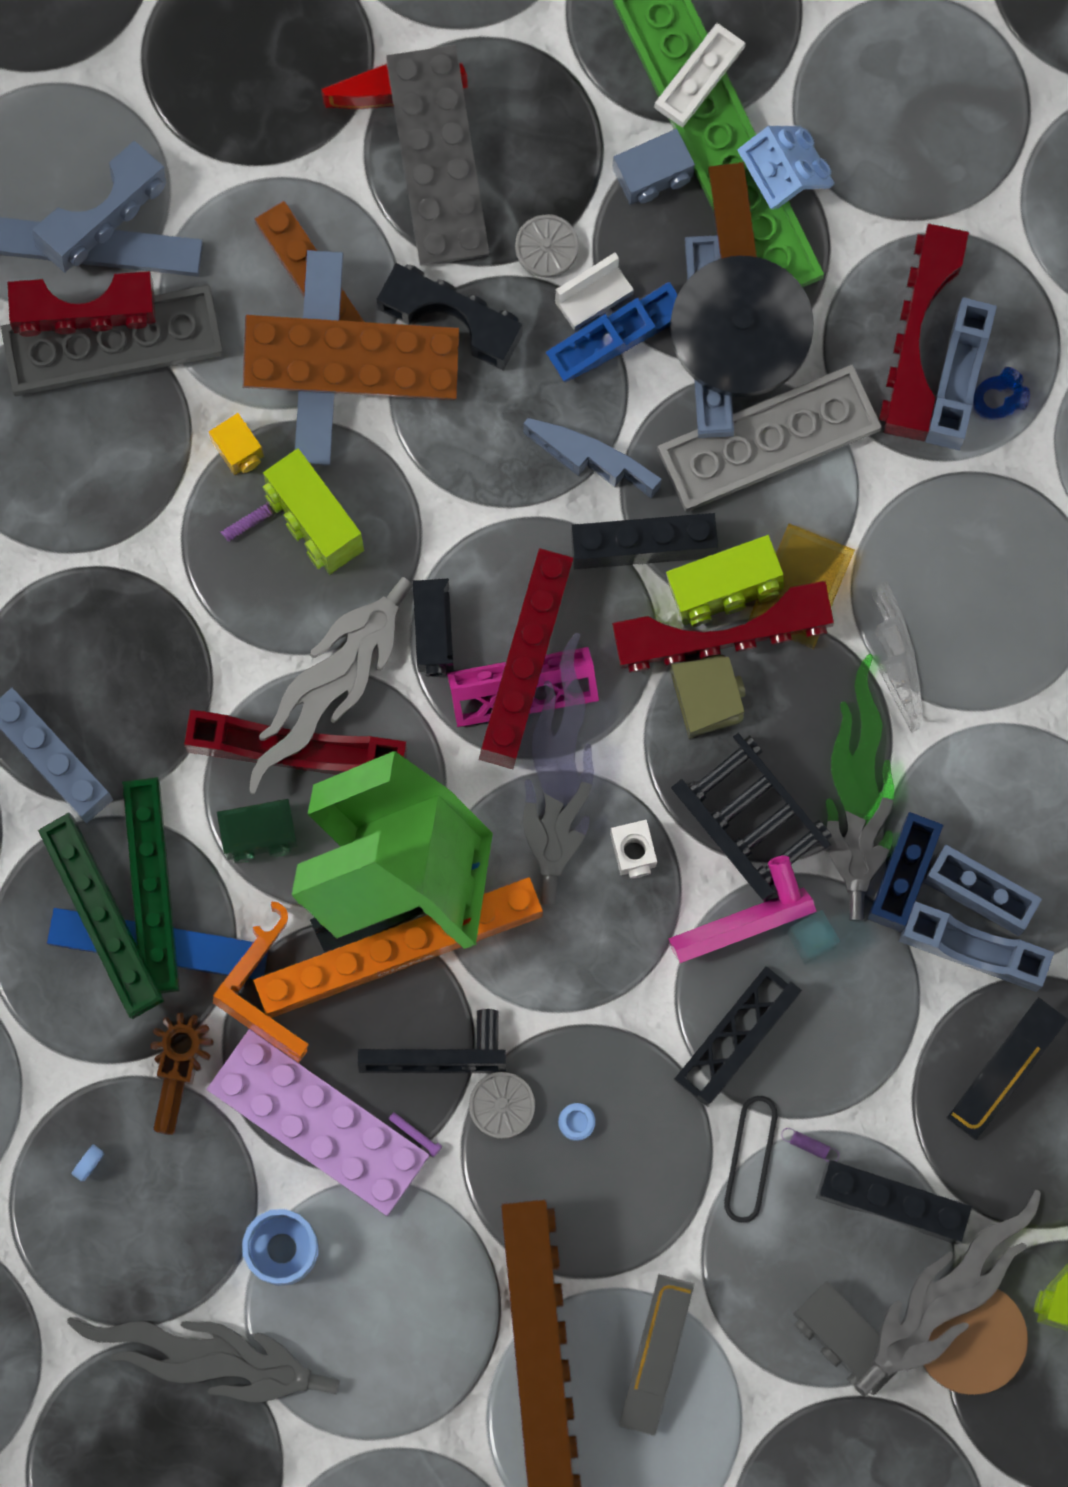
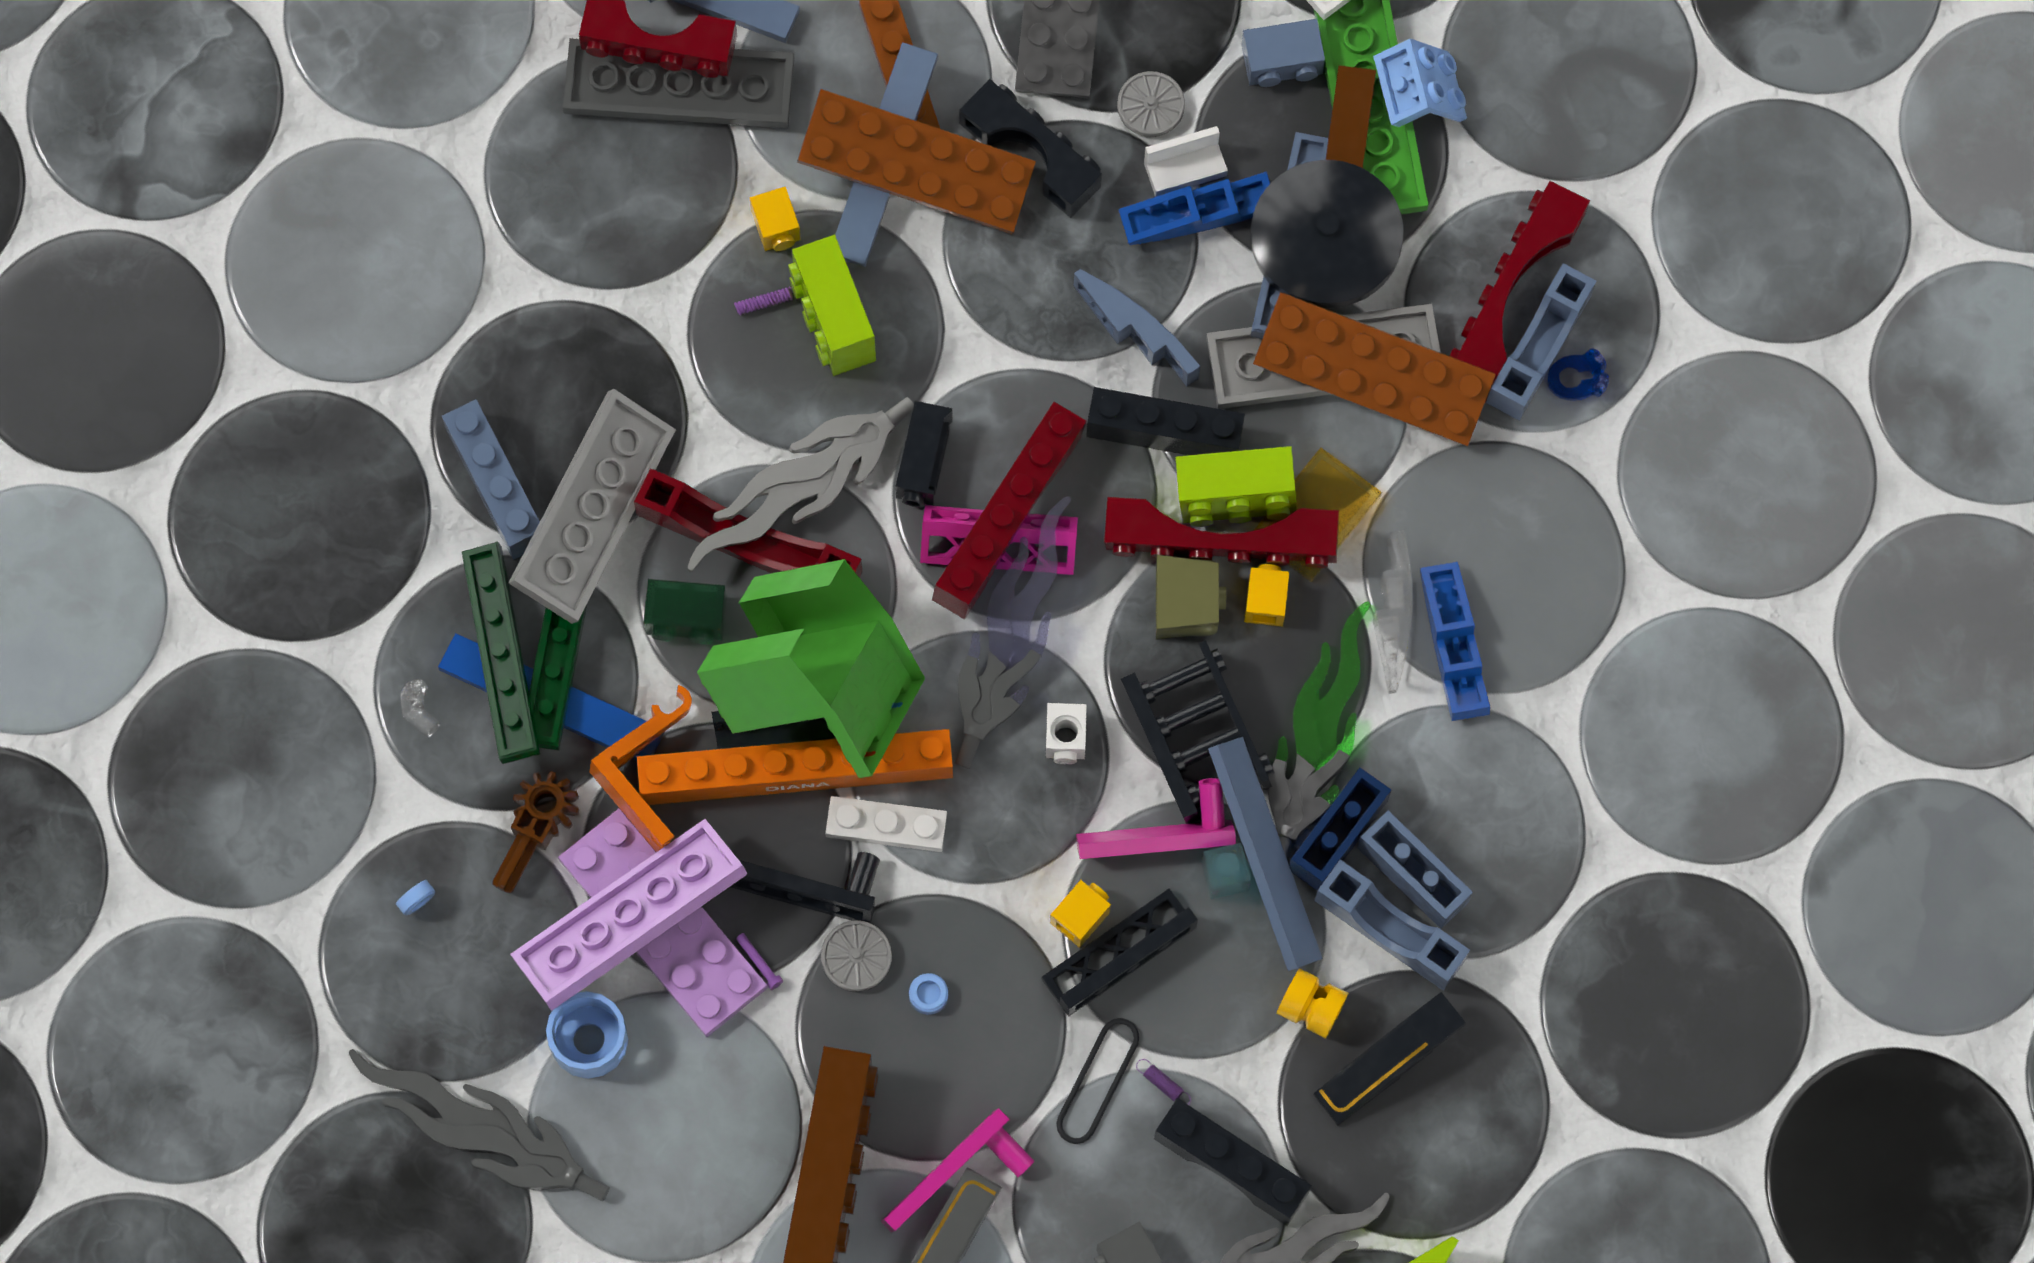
camera: 15 degrees right, 5 degrees down
(34, 985) = (413, 707): none -> clear arm
(146, 758) = (591, 506): none -> light grey plate
(287, 1128) = (628, 914): none -> lavender plate
(494, 976) = (886, 824): none -> white plate
(666, 1236) = (989, 1133): none -> dark pink piece
(694, 1010) = (1081, 912): none -> yellow brick
(779, 673) = (1267, 595): none -> yellow brick
(819, 439) = (1374, 368): none -> dark orange plate
(845, 913) = (1265, 853): none -> sand blue tile
(924, 1037) = (1312, 1003): none -> yellow wheel
(958, 669) = (1454, 641): none -> blue slope

